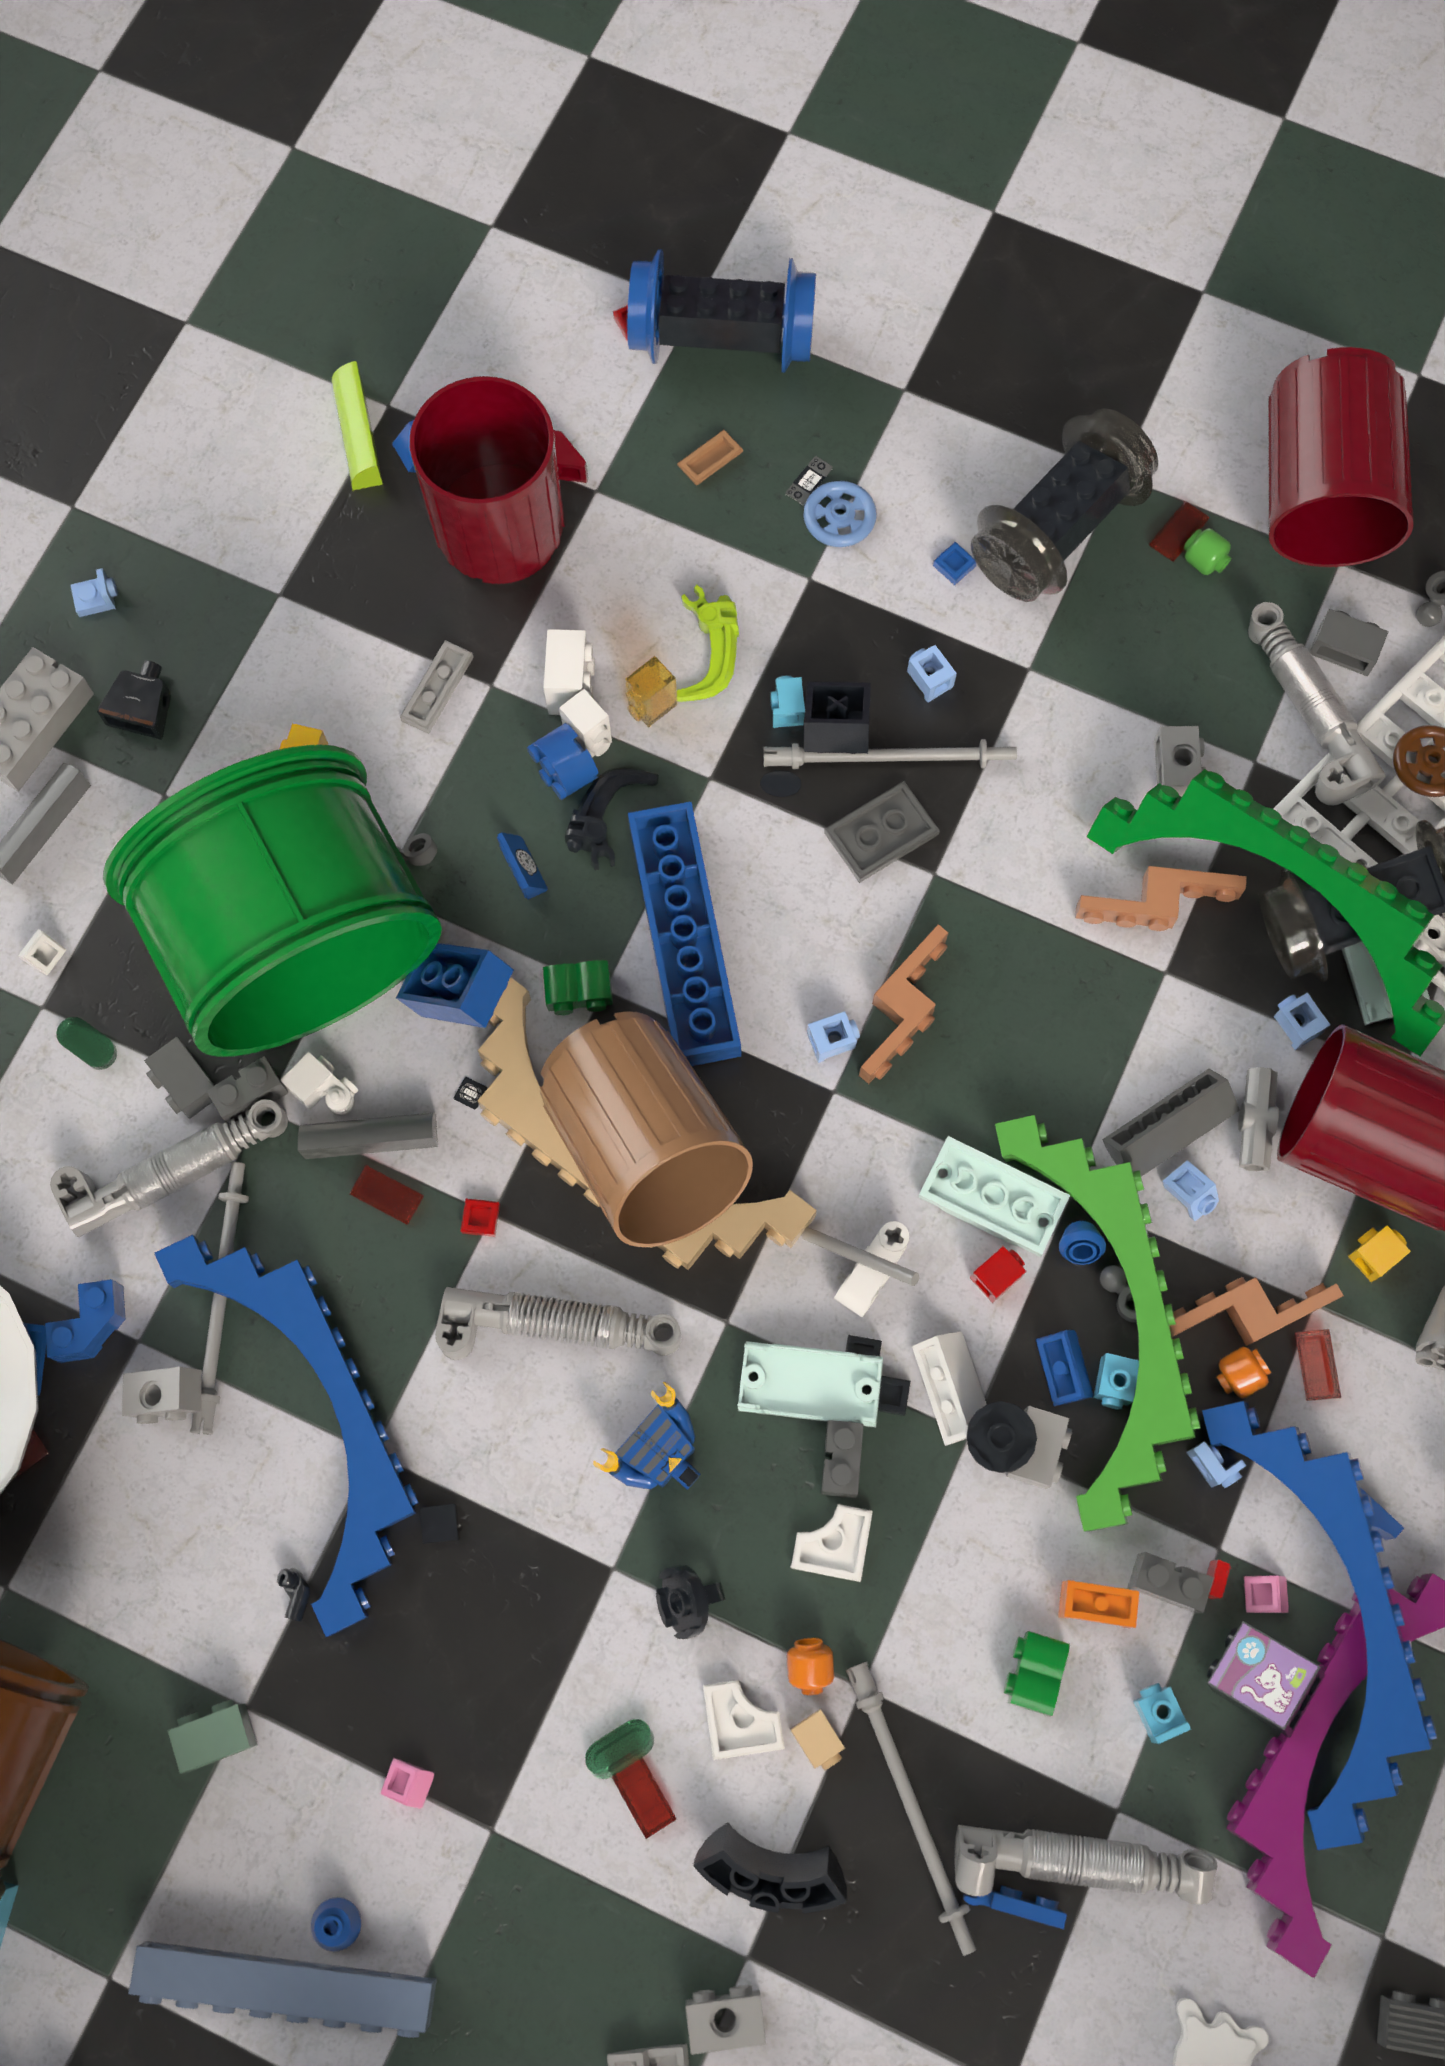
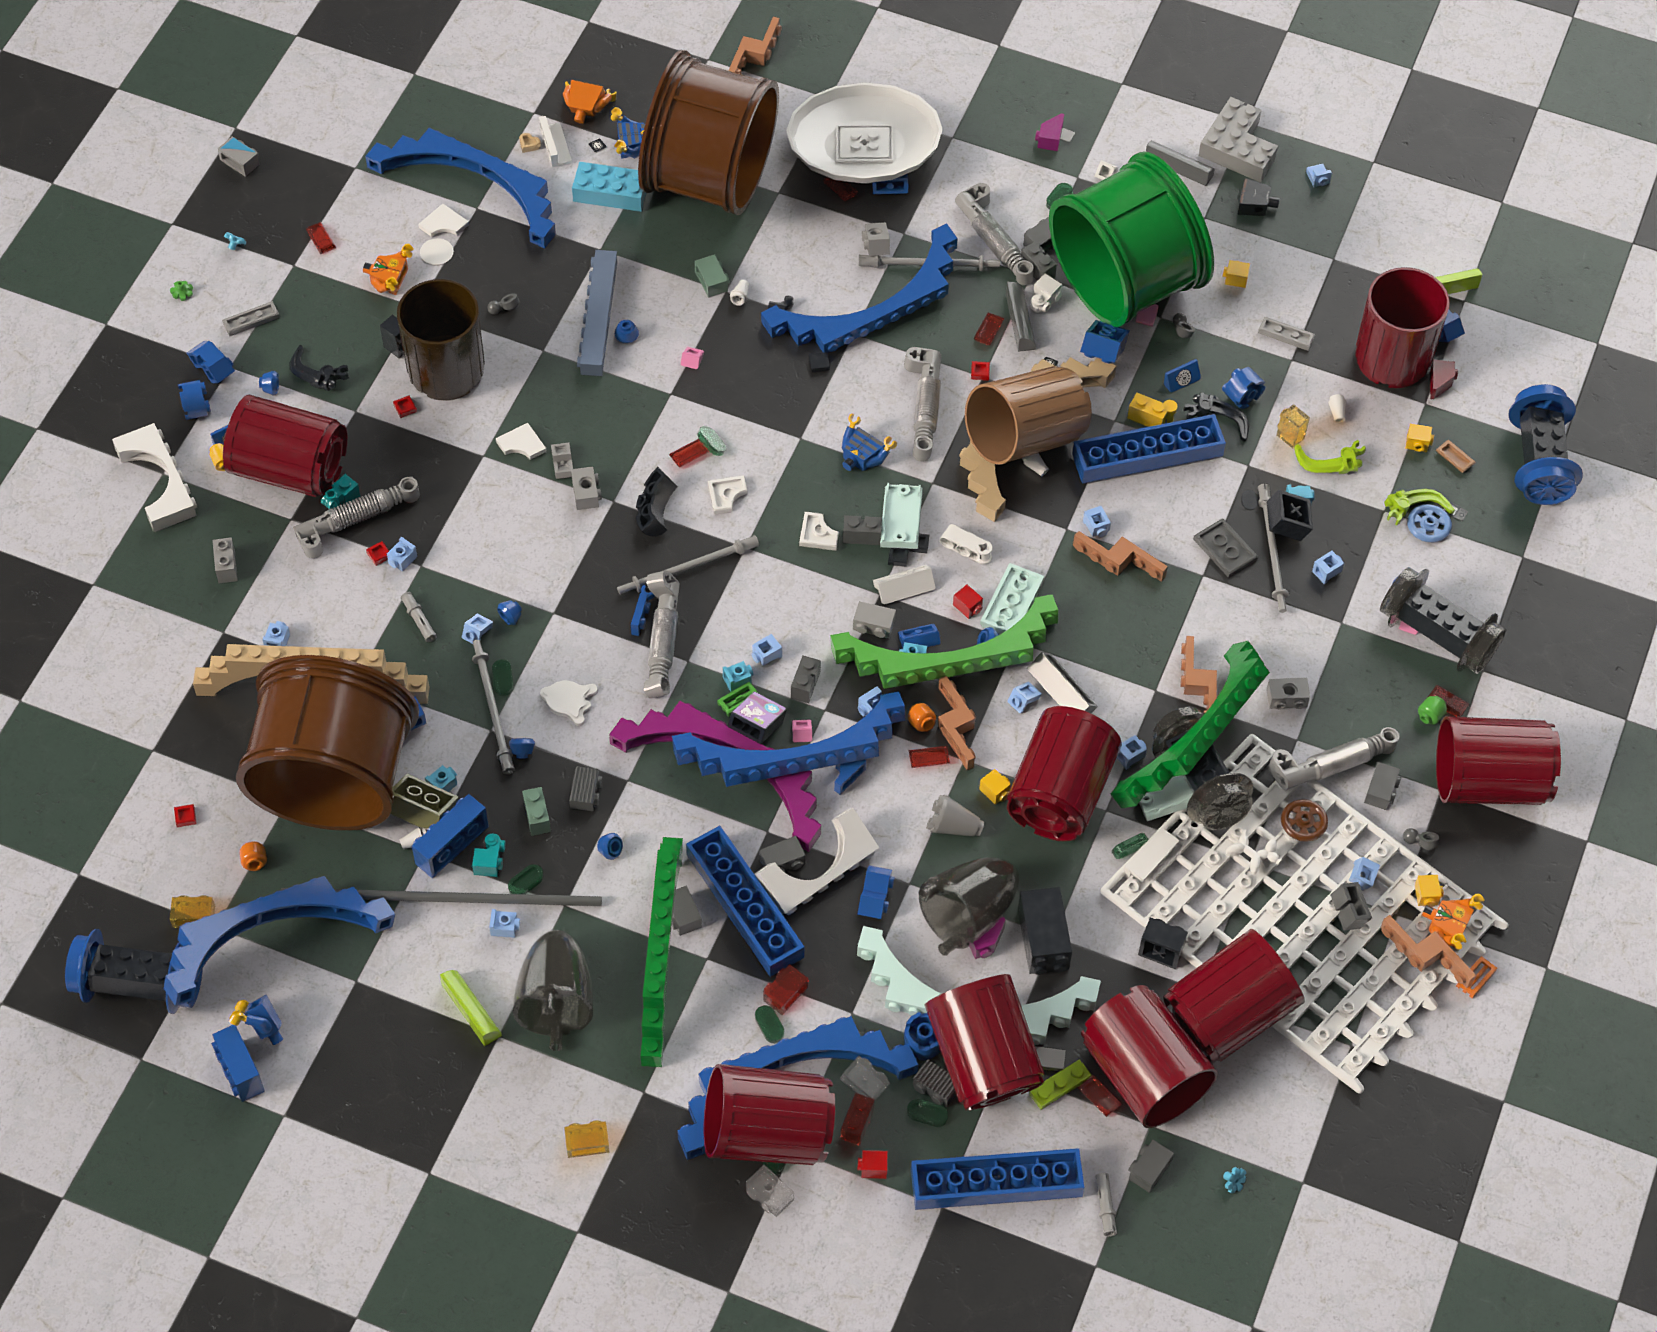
camera: 85 degrees right, 15 degrees down
(100, 1314) = (916, 212): blue brick -> none
(260, 1678) = (739, 293): none -> white cone
(567, 667) = (1299, 385): white brick -> none
(577, 986) = (1113, 404): green brick -> none
(588, 722) = (1267, 396): white brick -> none
(601, 921) = (1150, 411): none -> yellow hinge
(605, 621) = (1338, 406): none -> white cone
(675, 505) = (1419, 438): none -> yellow brick
(685, 1600) = (786, 465): black tile -> none
(802, 548) = (1401, 500): none -> lime piece
(810, 1665) = (755, 519): orange head -> none
(818, 1740) = (719, 523): tan brick -> none
(861, 1256) = (974, 526): light grey bar -> none
(1001, 1437) = (877, 593): black tile -> none
(1037, 1673) = (755, 619): green brick -> none
(1098, 1603) = (792, 645): orange panel -> none
(1109, 1640) = (766, 650): none -> light blue brick
(1220, 1572) = (808, 701): red tile -> none
(1222, 1741) = (728, 708): none -> bright green tile

